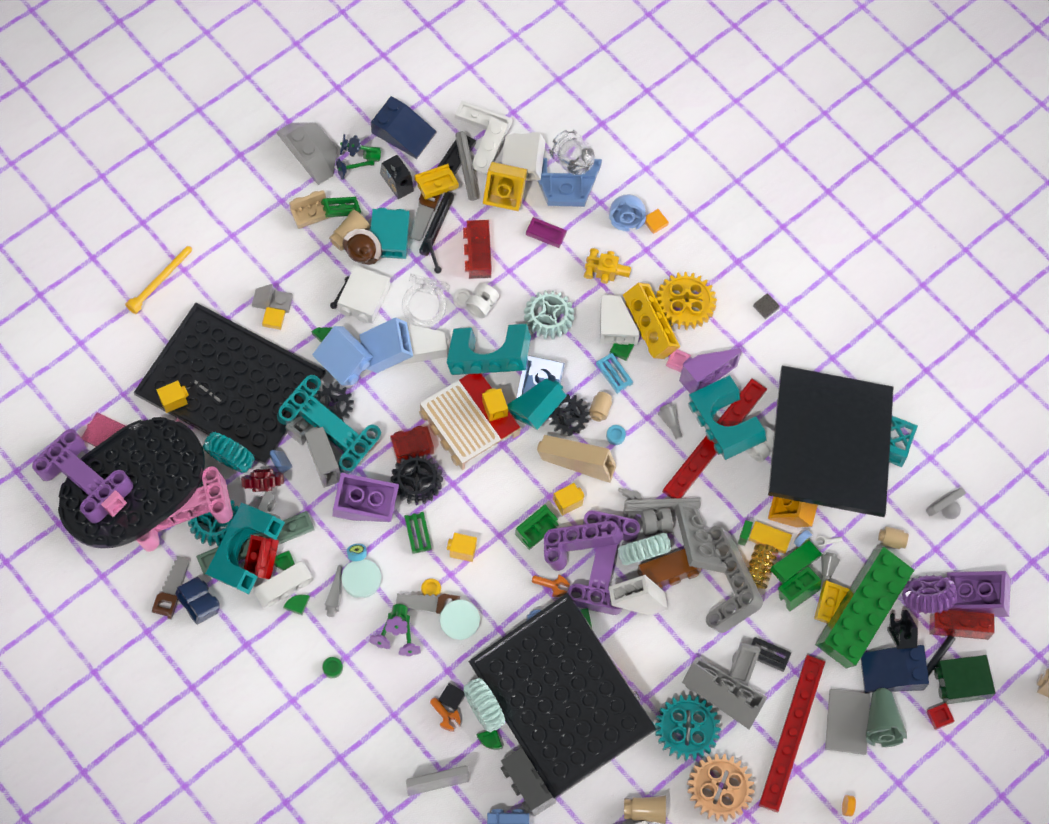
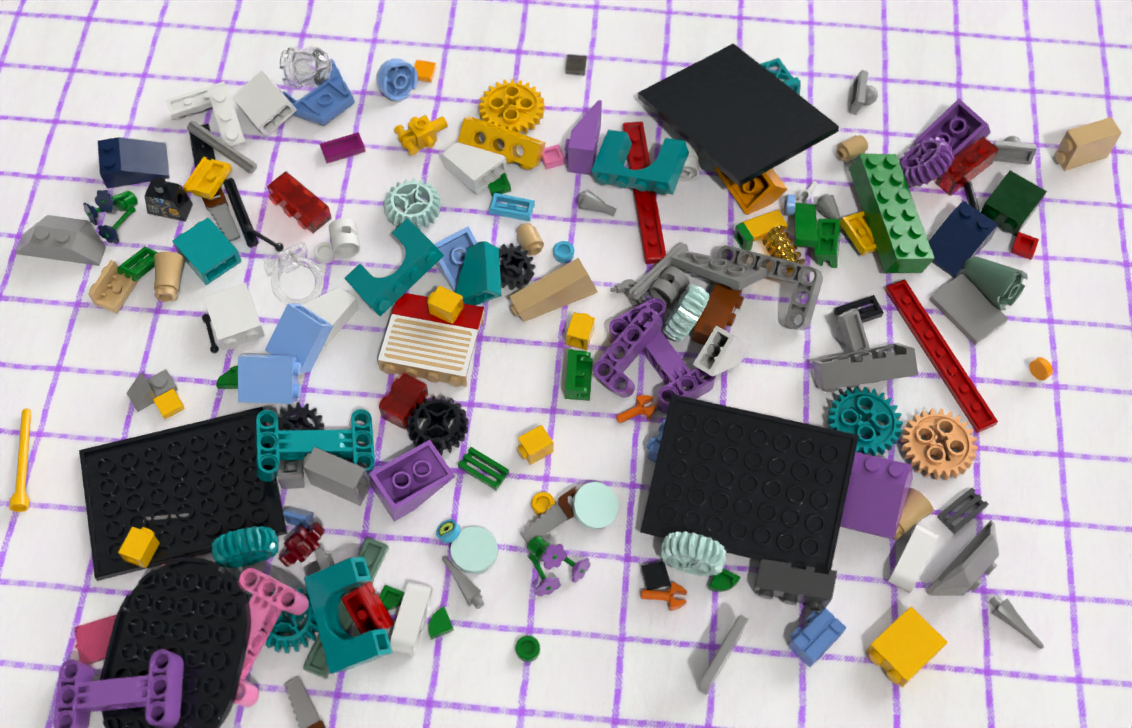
camera: 40 degrees left, 5 degrees down
(114, 503) = (179, 688): bright pink tile -> none
(197, 600) = (345, 705): dark blue brick -> none
(362, 246) = (194, 278): reddish brown helmet -> none
(504, 186) = (273, 134): yellow brick -> none
(635, 777) = (876, 495): none -> medium lavender slope
(903, 632) = (937, 203): black hinge -> none
(1011, 643) = (1014, 151): none -> light grey tile

